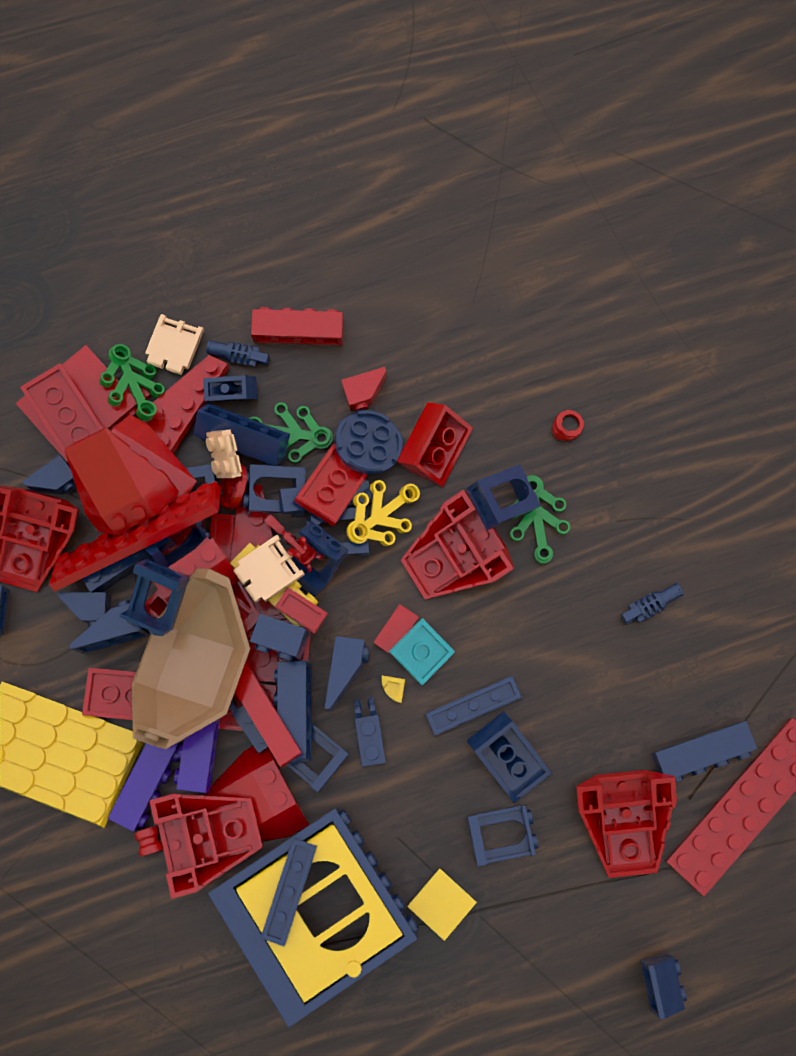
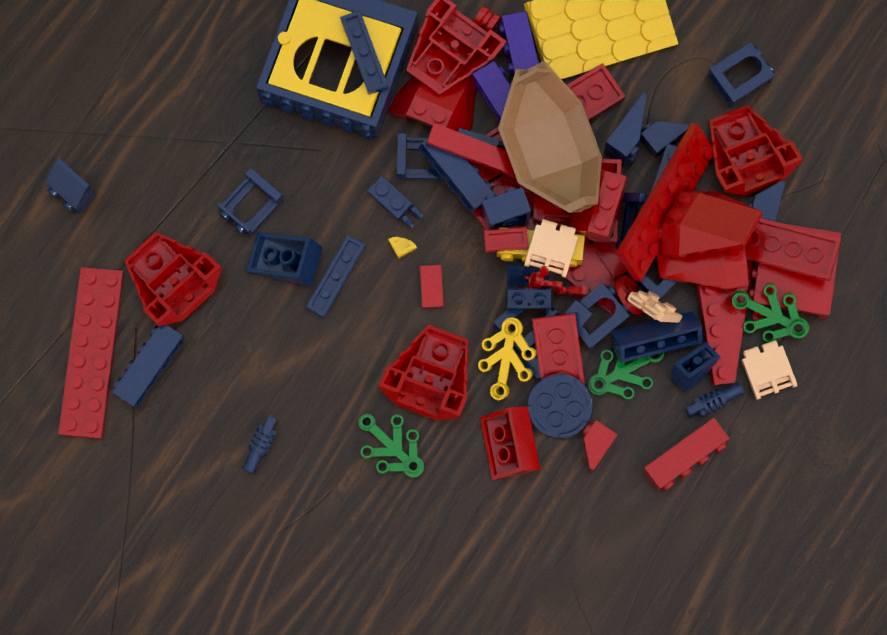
camera: 140 degrees right, 0 degrees up
(137, 614) = (613, 180): dark blue panel -> none
(346, 664) = (448, 235): dark blue slope -> none
(421, 651) = (401, 284): teal tile -> none
(442, 904) = (257, 129): yellow tile -> none
(486, 504) = (435, 415): dark blue panel -> none
(561, 433) = (426, 525): red piece -> none

